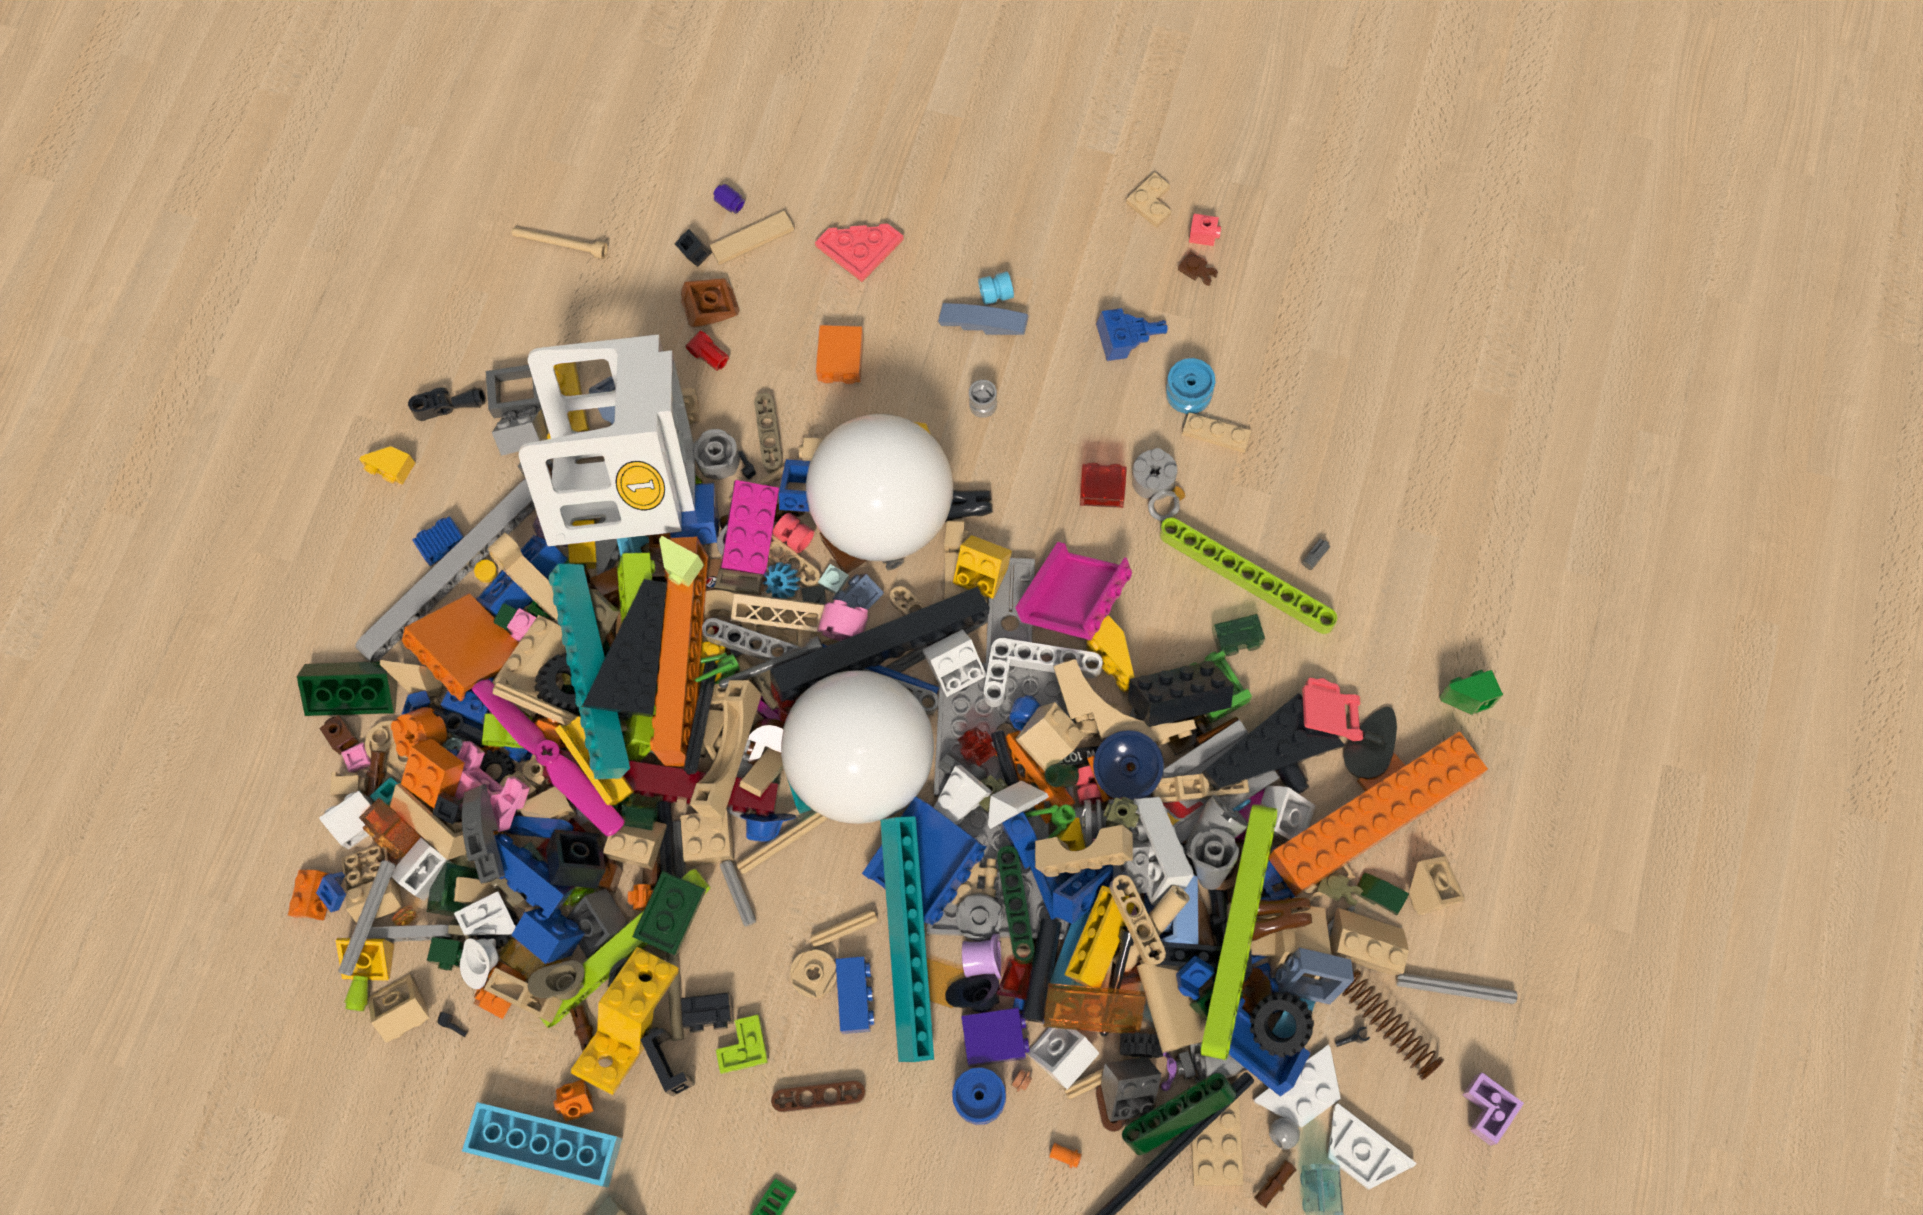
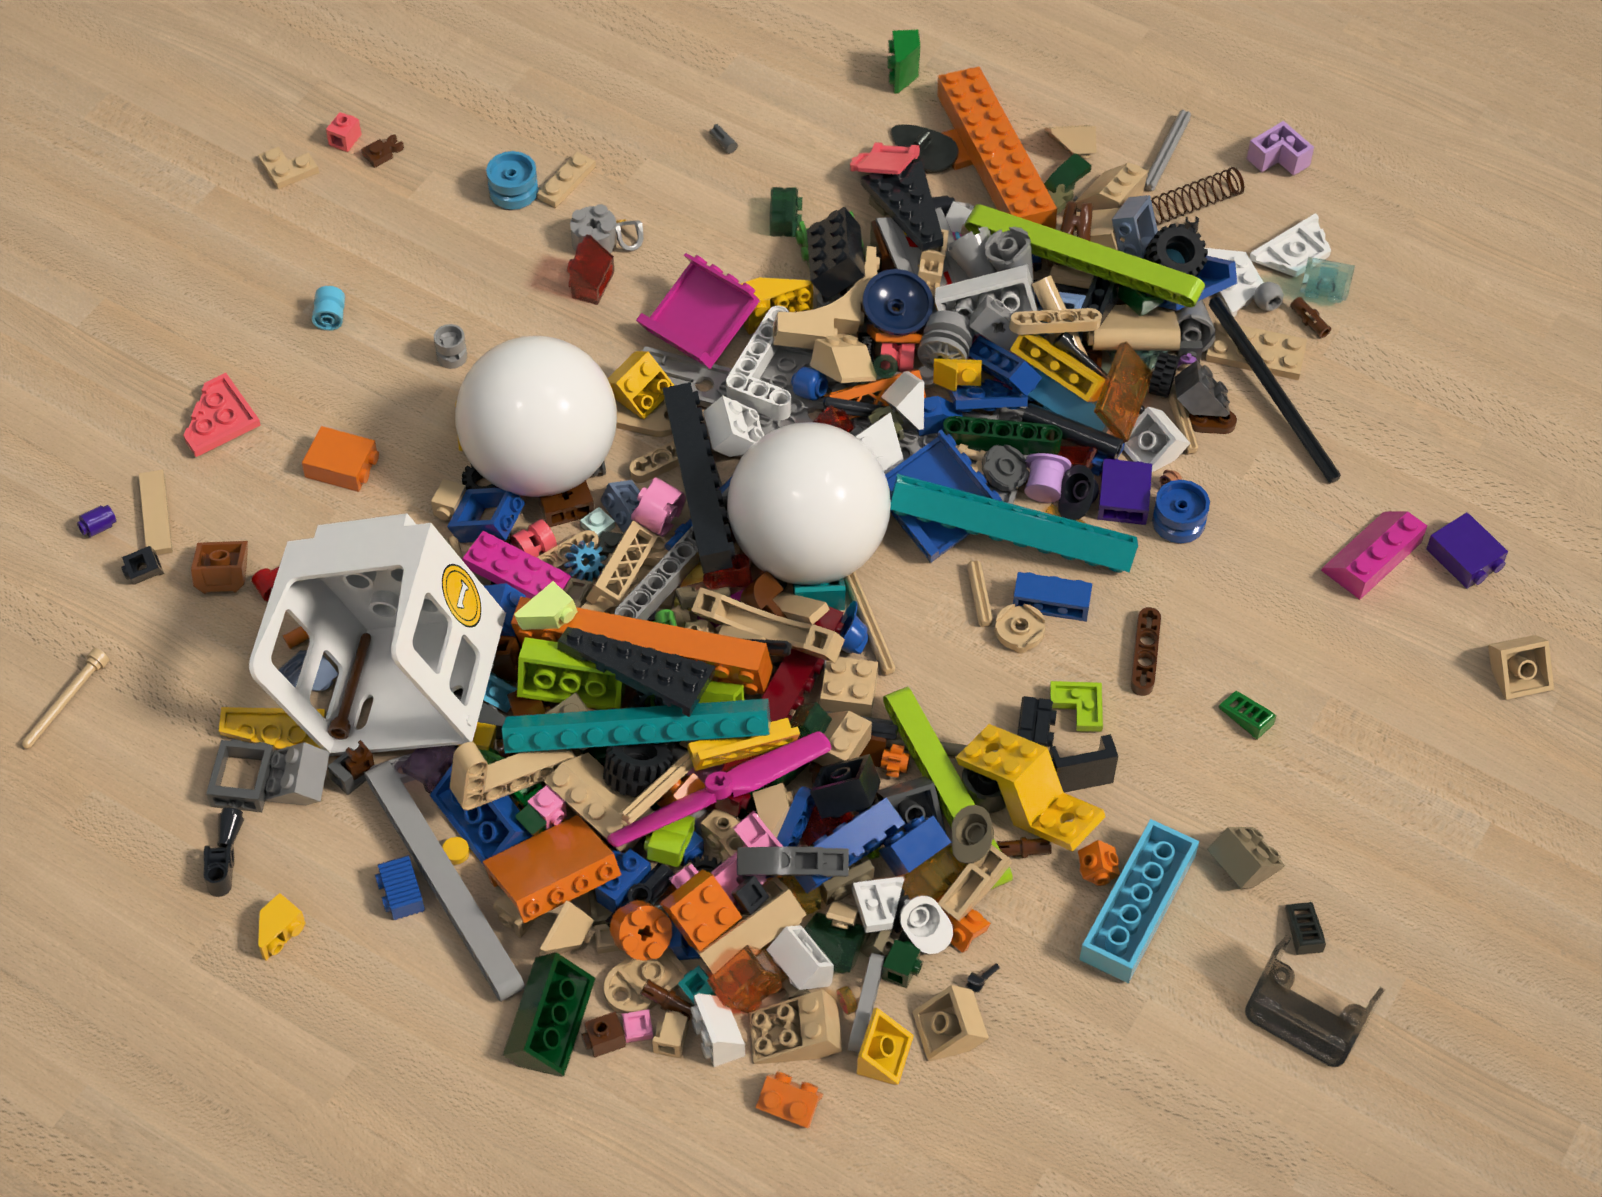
camera: 80 degrees left, 15 degrees down
(331, 891) = (799, 1059): blue bracket -> none
(357, 994) = (923, 1063): lime cone -> none
(366, 918) = (847, 1014): light grey axle -> none
(415, 701) = (602, 942): blue piece -> none
(669, 913) = (927, 722): dark green tile -> none
(737, 893) = (914, 678): light grey axle -> none
(814, 645) = (682, 527): dark grey piece -> none
(989, 319) = (357, 327): sand blue slope -> none
(1060, 816) = (928, 371): bright green plant -> none
(1065, 1155) = (1254, 458): orange pin -> none
(1111, 847) = (972, 374): tan arch -> none
(1125, 332) = (428, 221): blue brick -> none
(1126, 806) = (951, 305): olive brick -> none
(1179, 1114) = (1243, 366): dark green beam -> none
(1193, 976) = (1116, 301): blue bracket -> none
(1252, 585) = (725, 191): lime beam -> none

